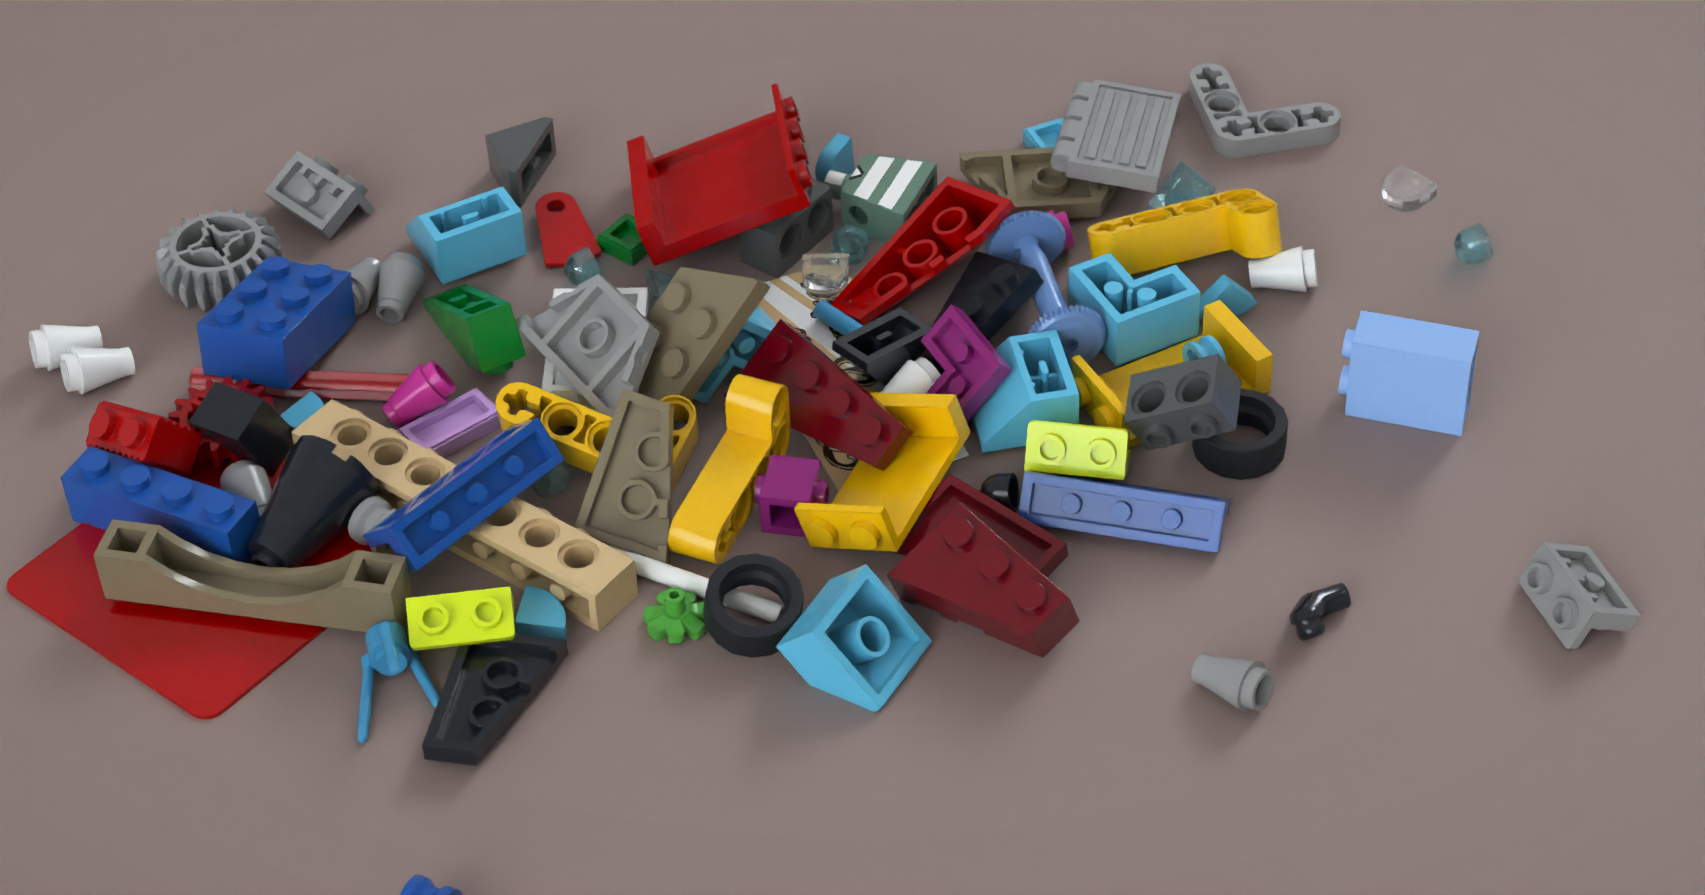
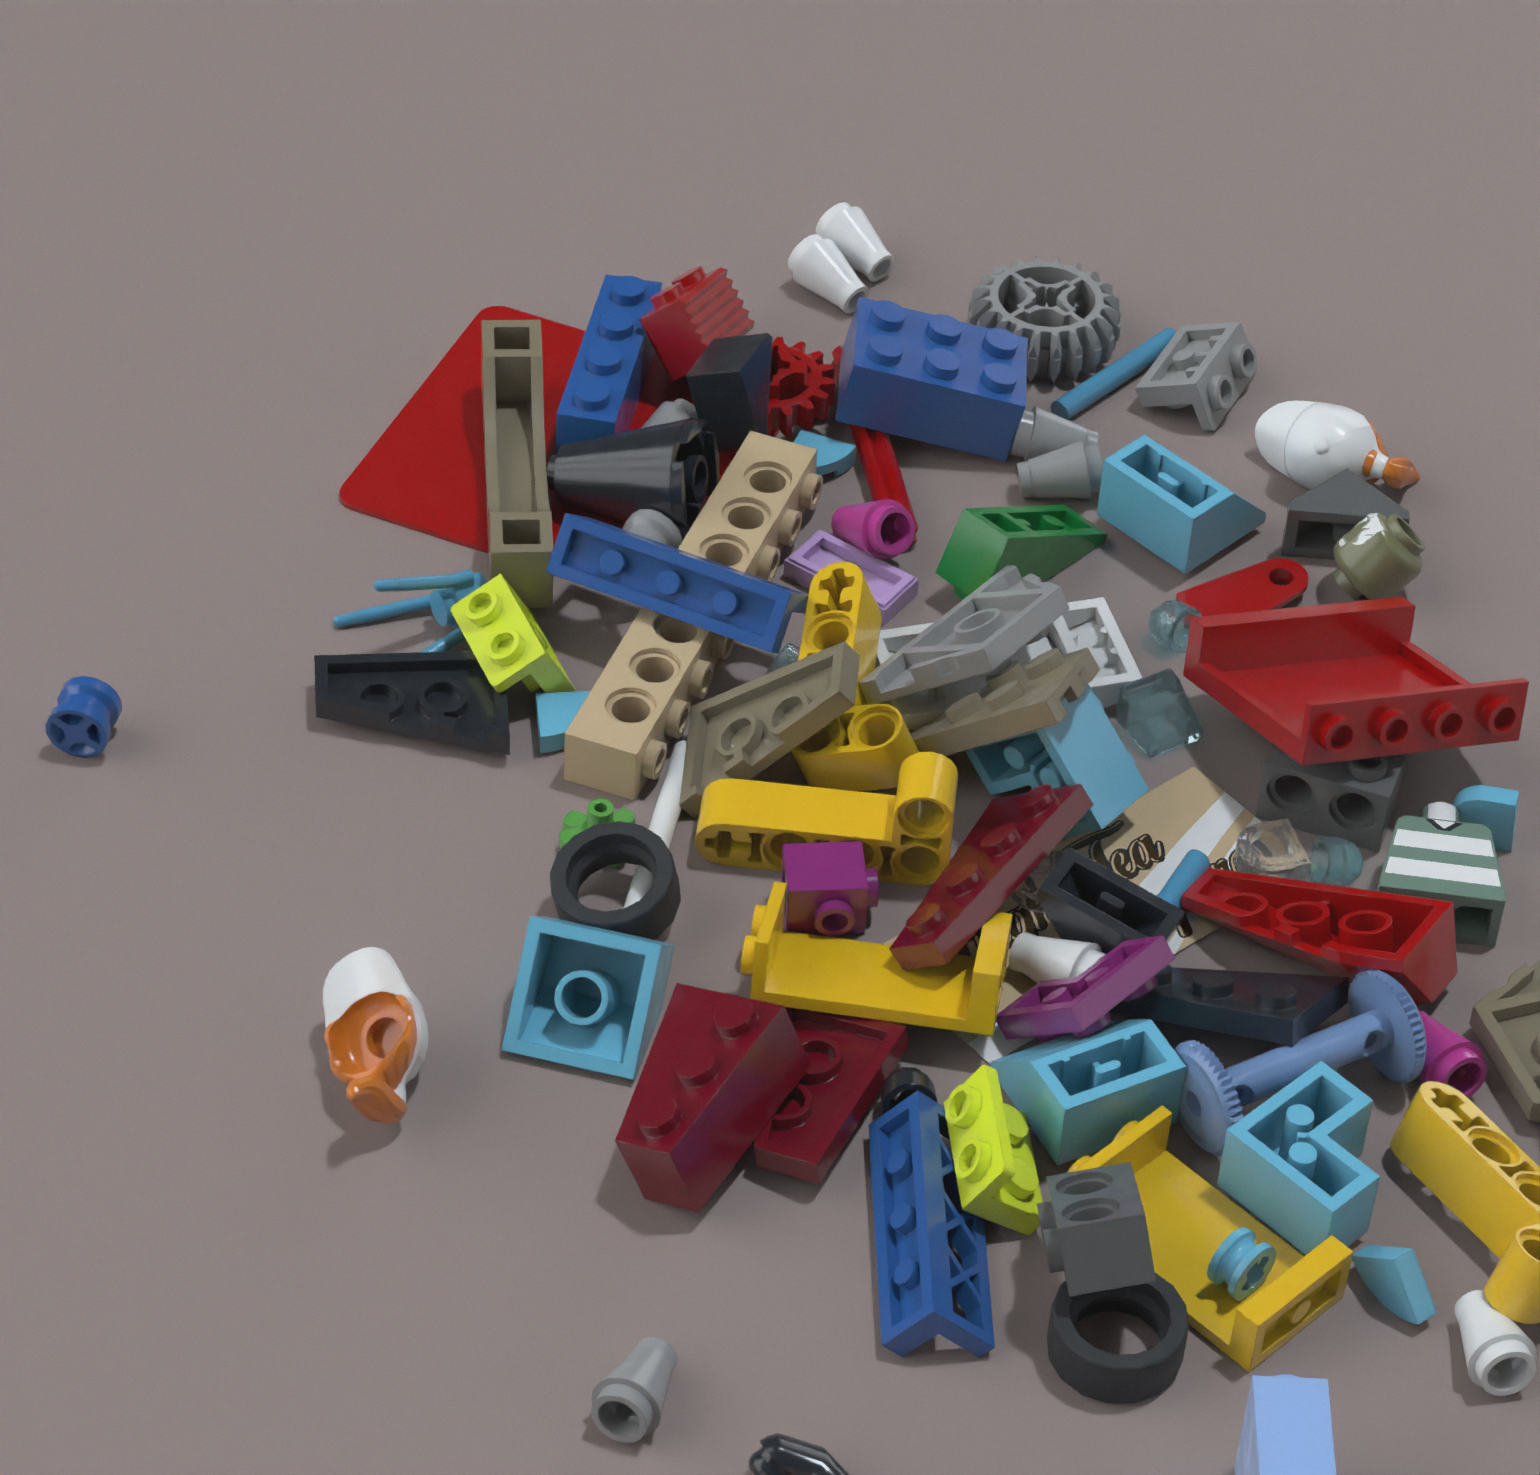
camera: 70 degrees right, 0 degrees up
(286, 235) = (1111, 376): none -> dark azure bar
(442, 148) = (1322, 439): none -> white hair
(573, 147) = (1377, 557): none -> olive head
(868, 760) = (374, 1032): none -> orange hair

